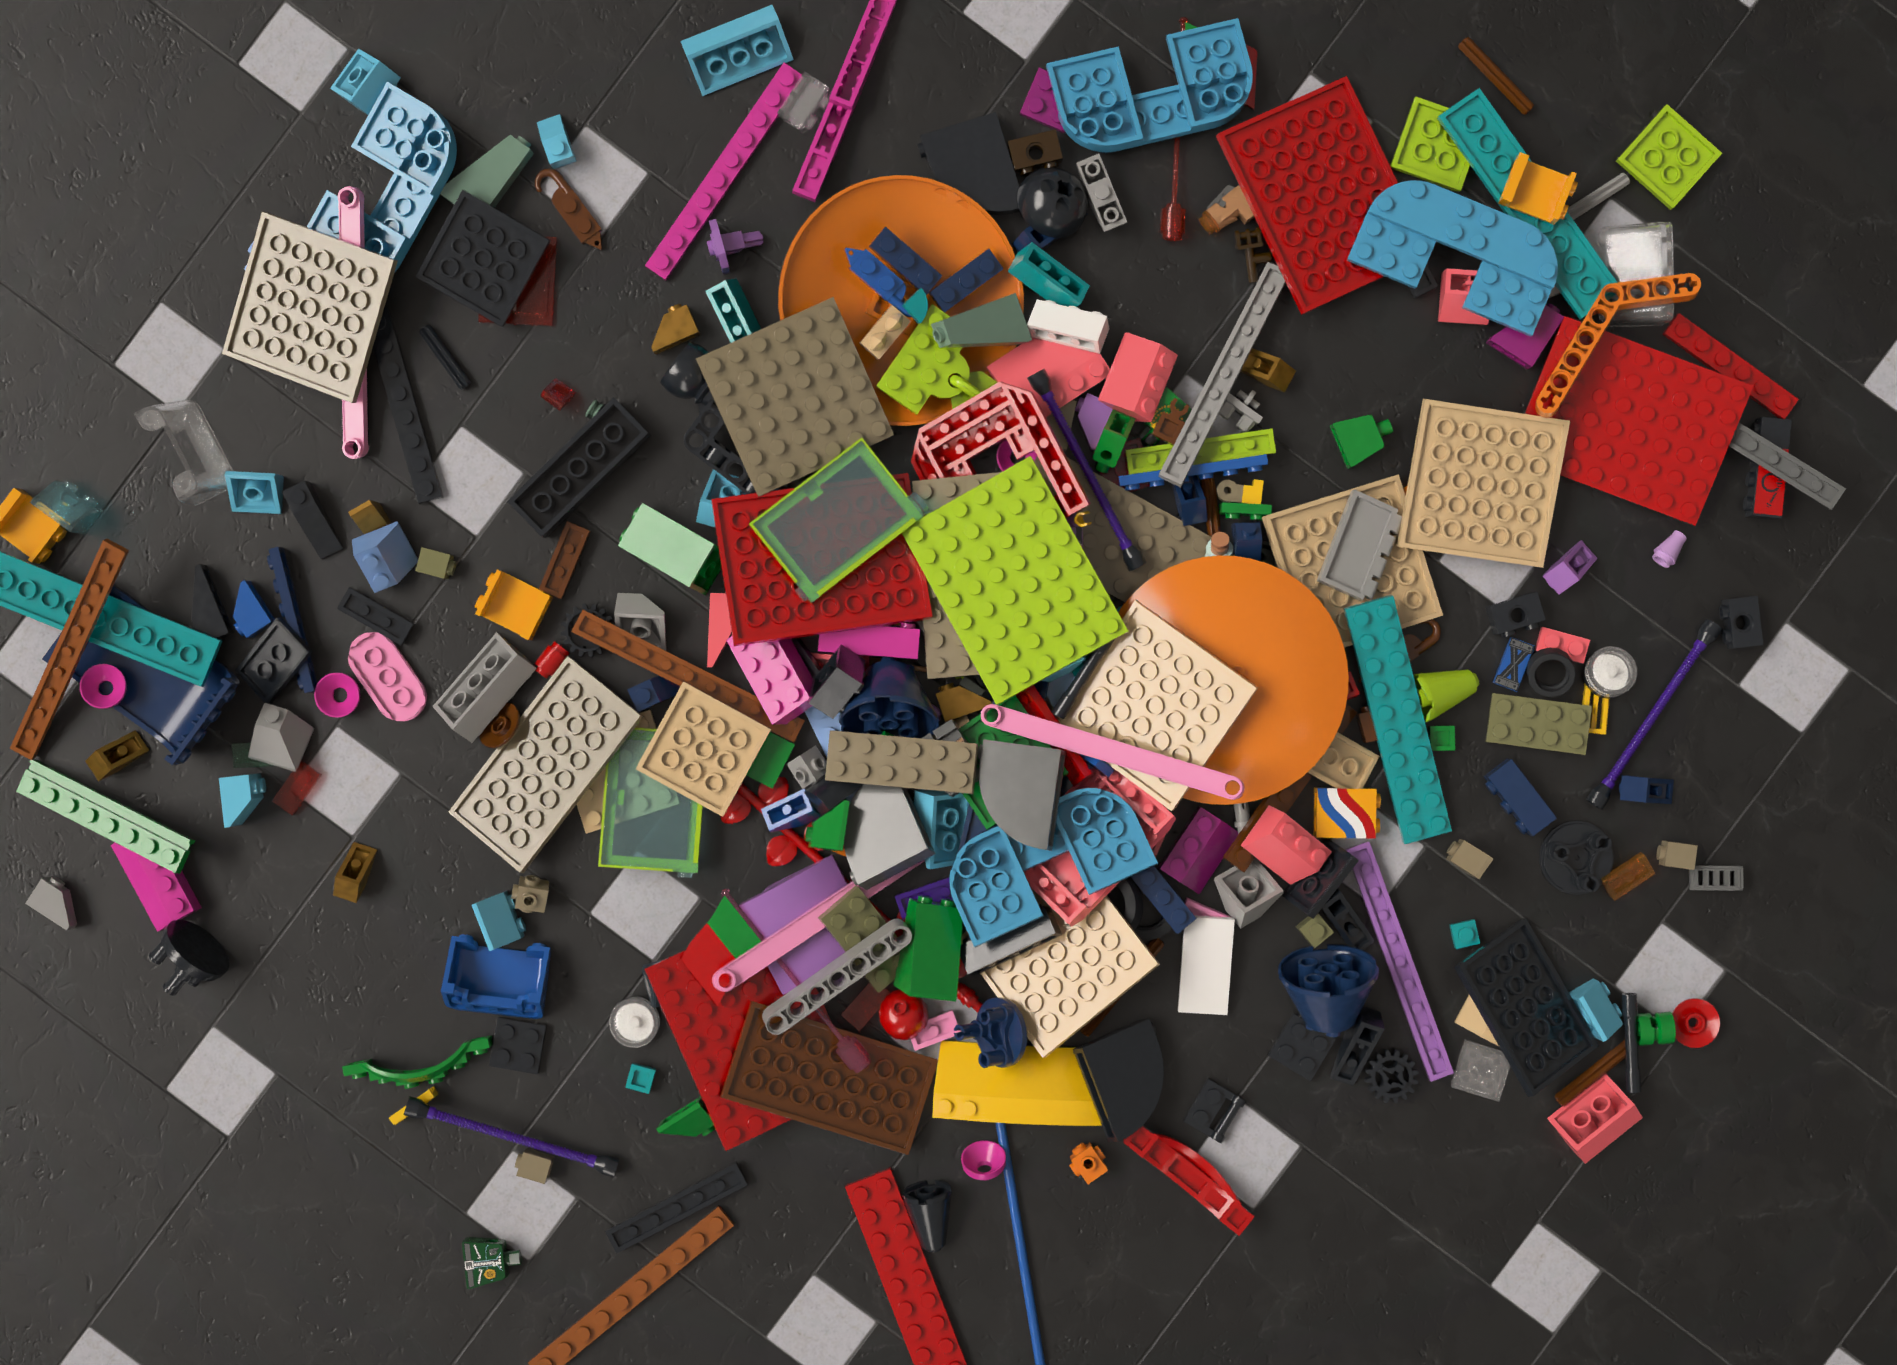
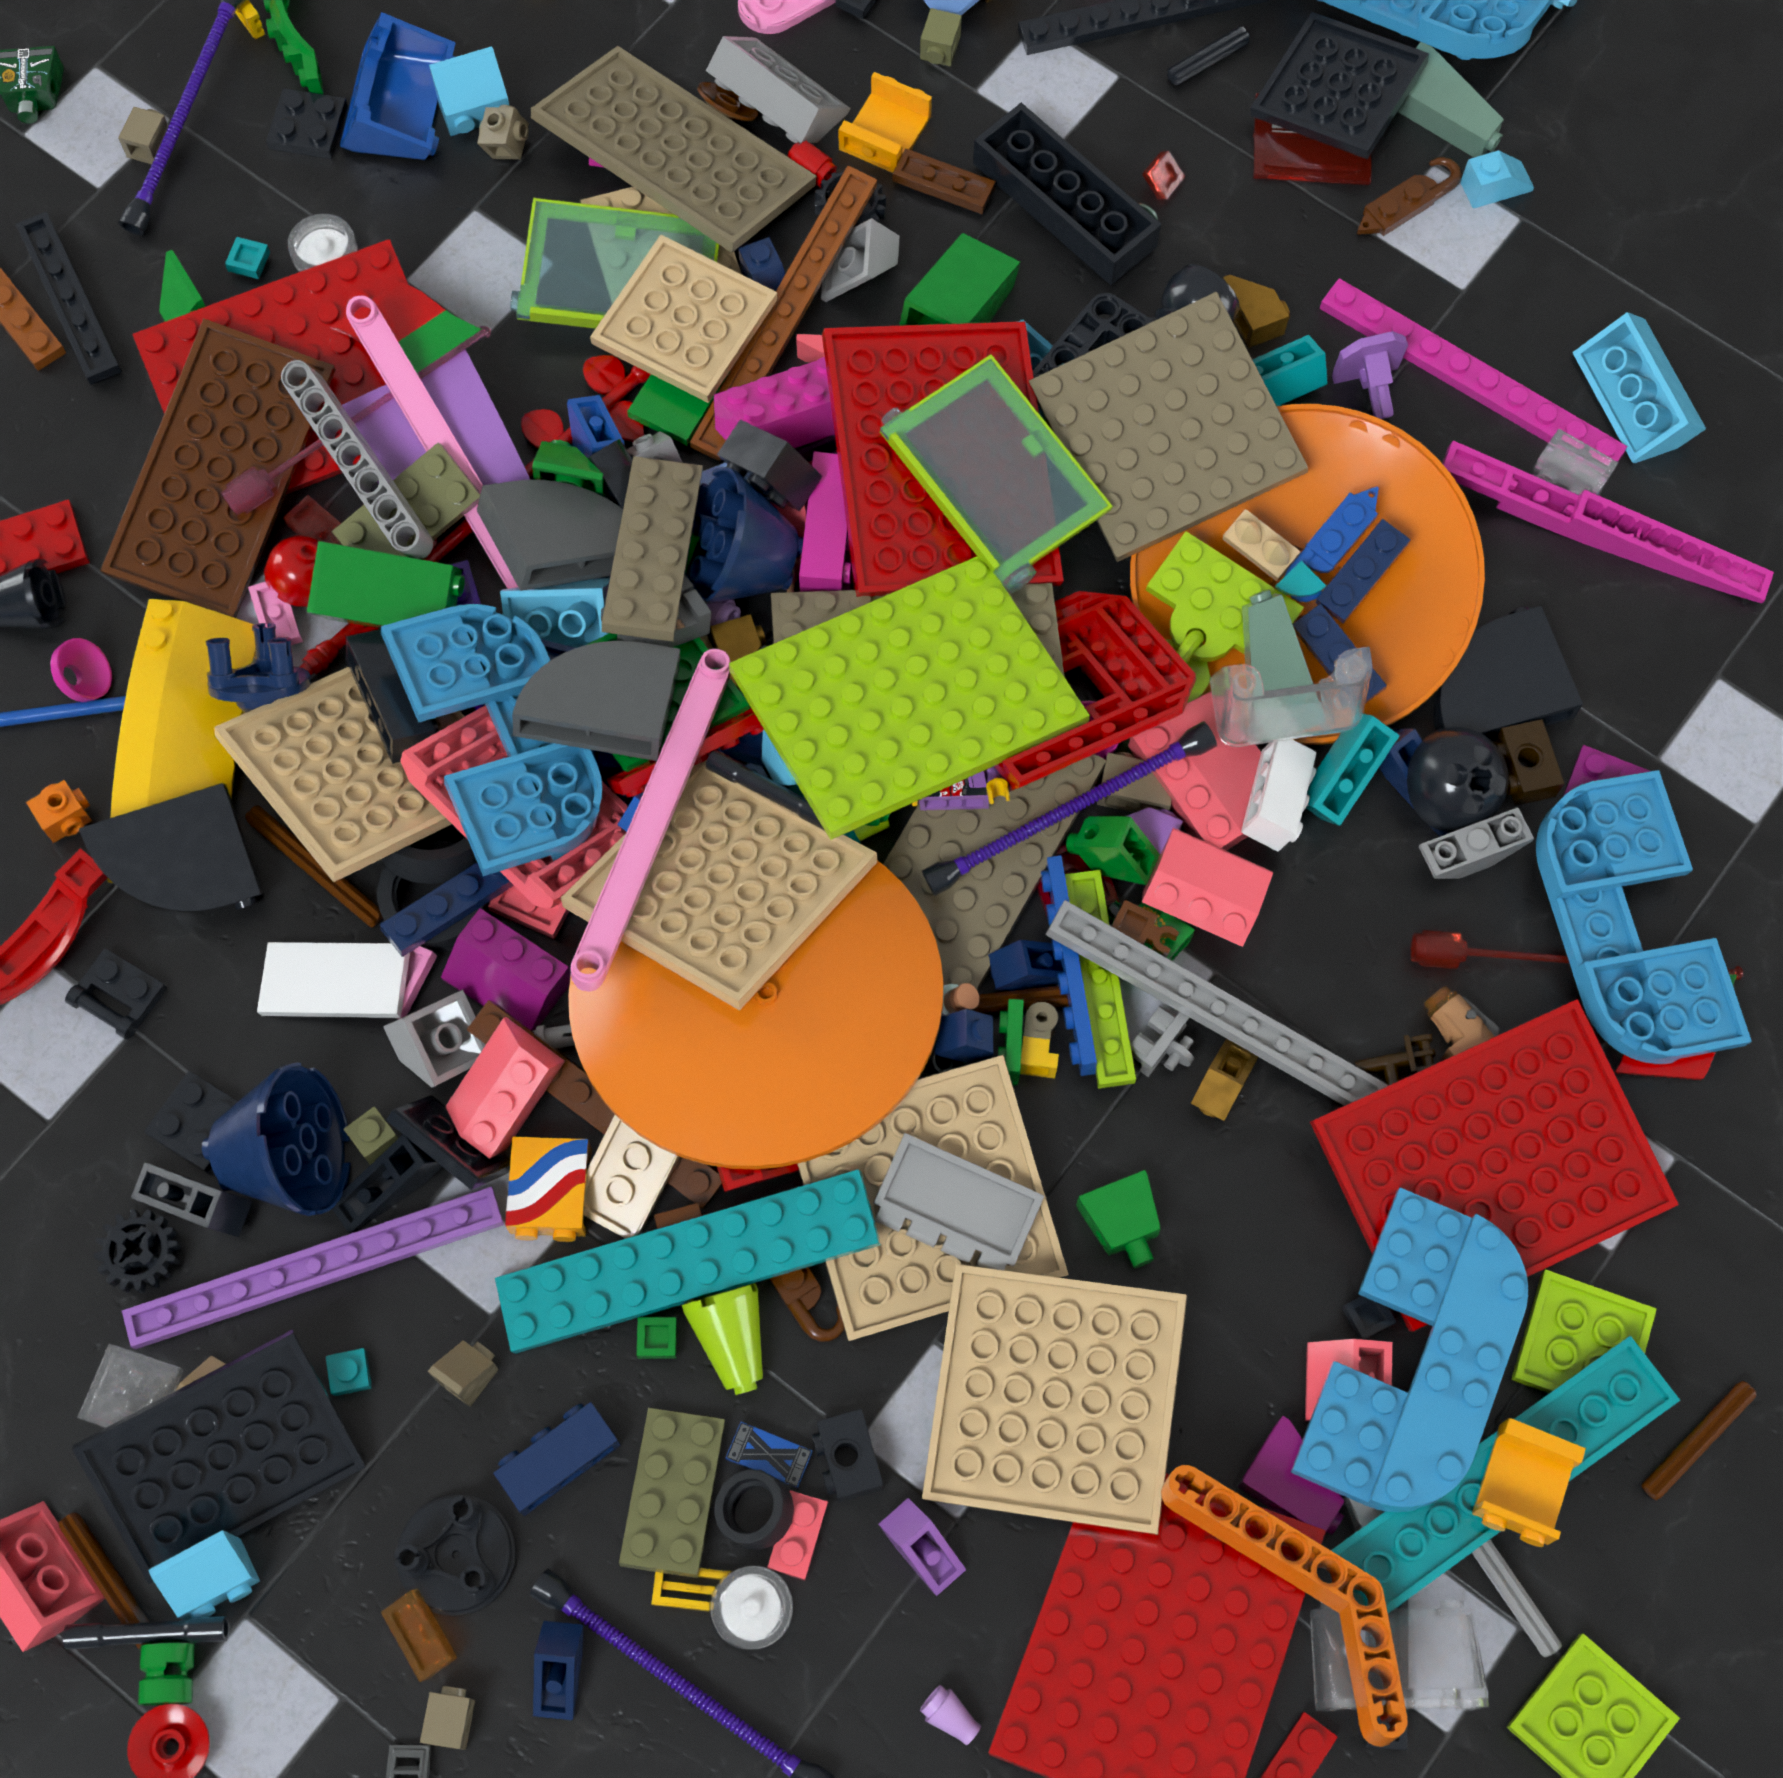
camera: 90 degrees right, 20 degrees down
(1015, 283) = (1256, 716): none -> clear windscreen

